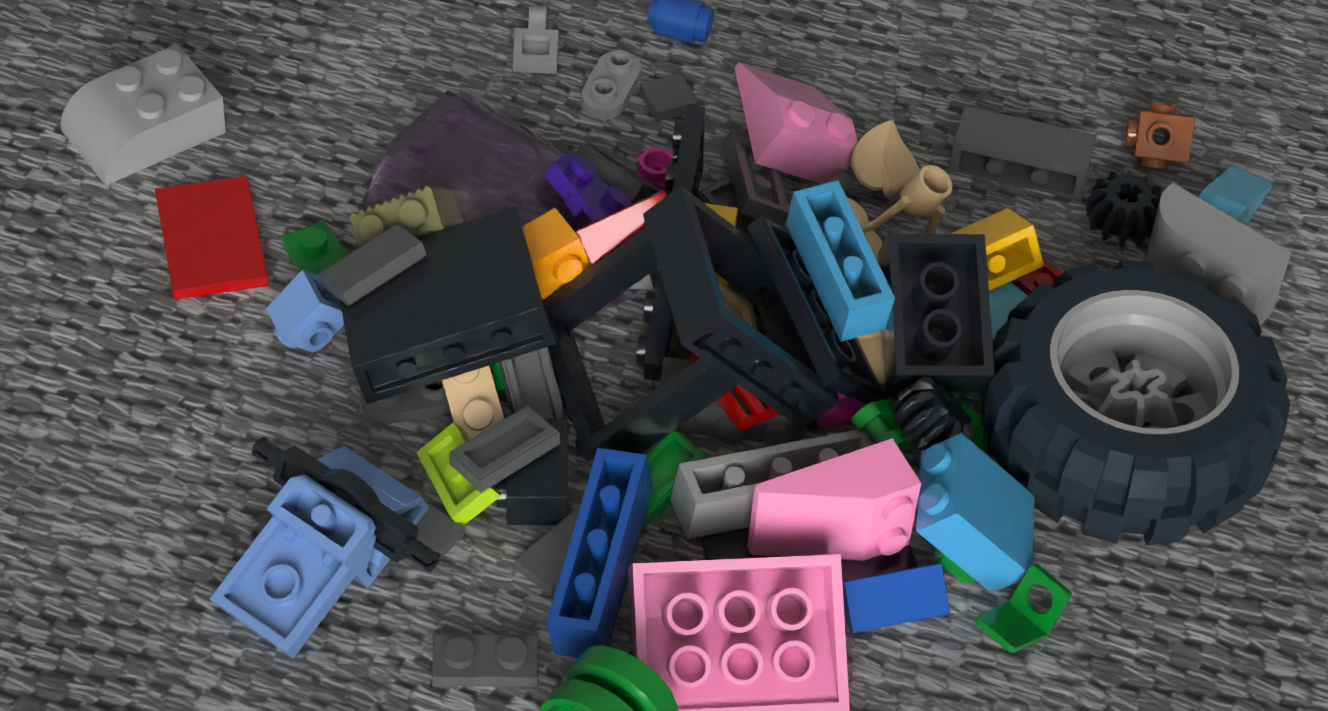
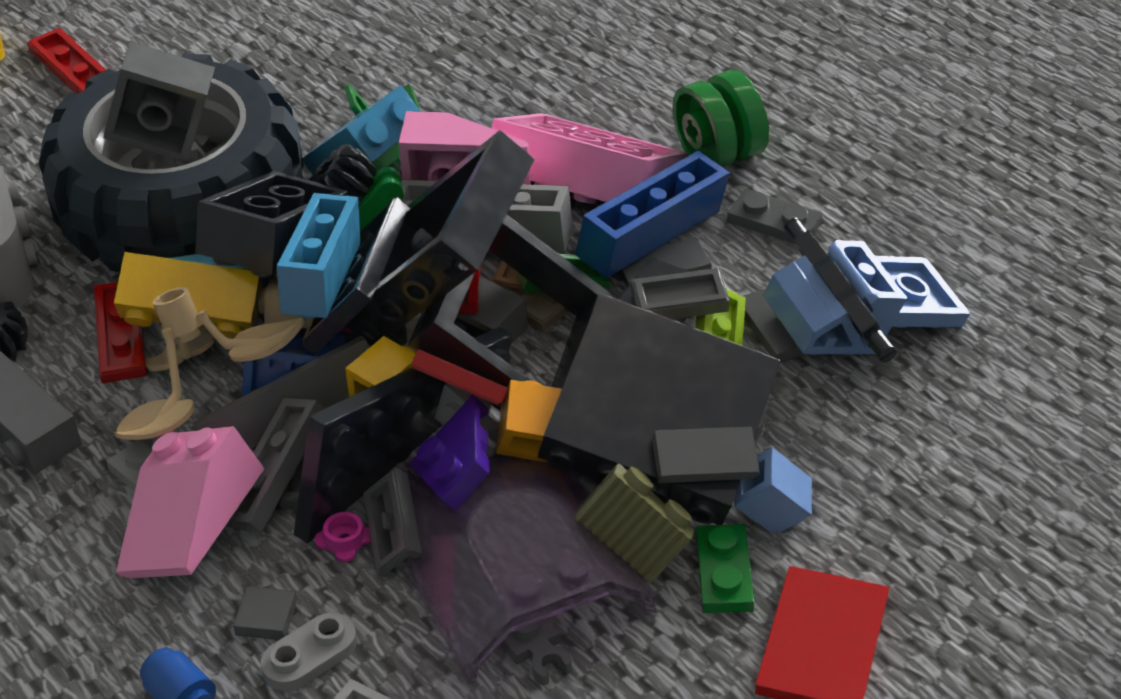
camera: 145 degrees left, 5 degrees down
(1151, 341) = (158, 102): none -> dark grey brick

